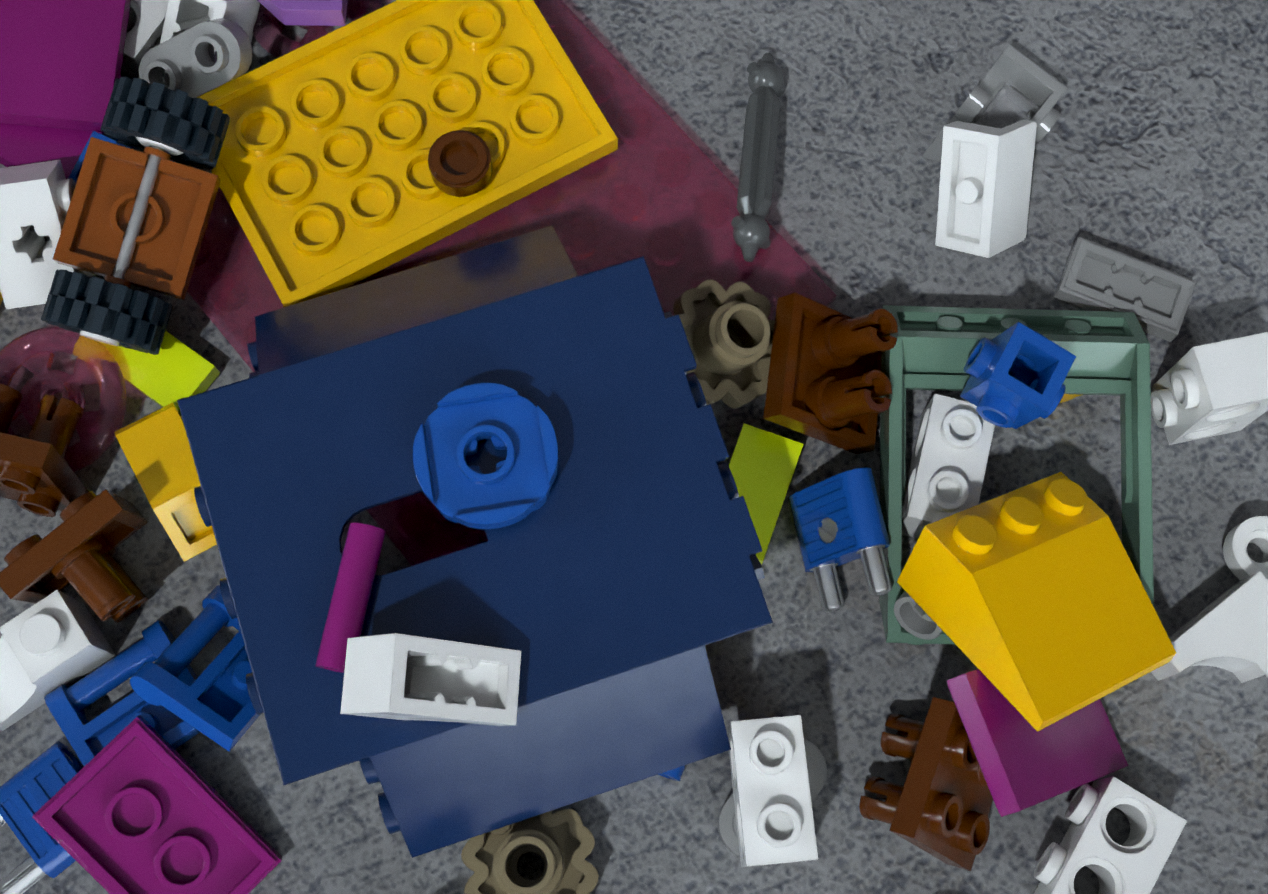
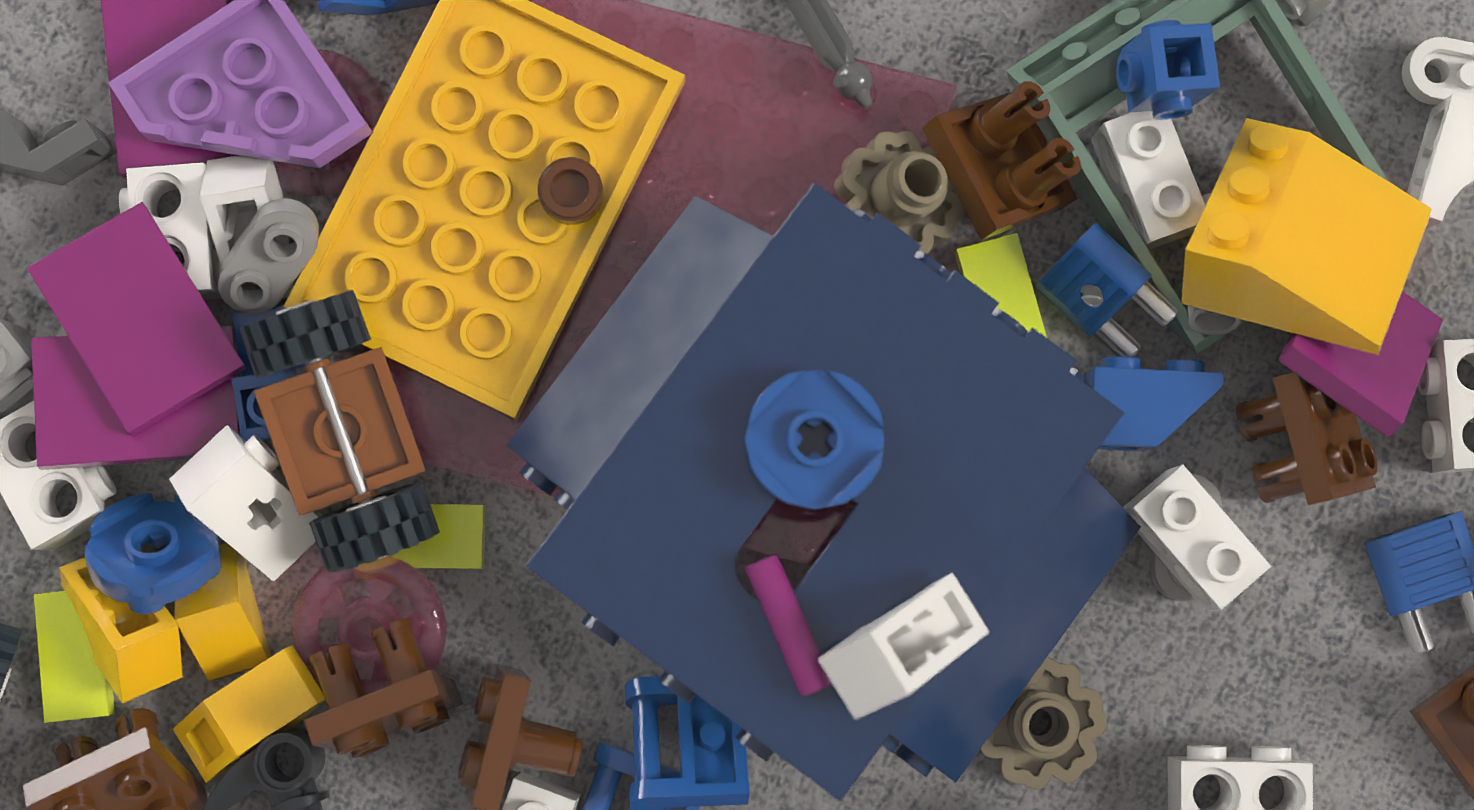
camera: 35 degrees left, 10 degrees up
(167, 473) = (526, 620): yellow slope -> none
(810, 655) = (1151, 398): none -> blue slope

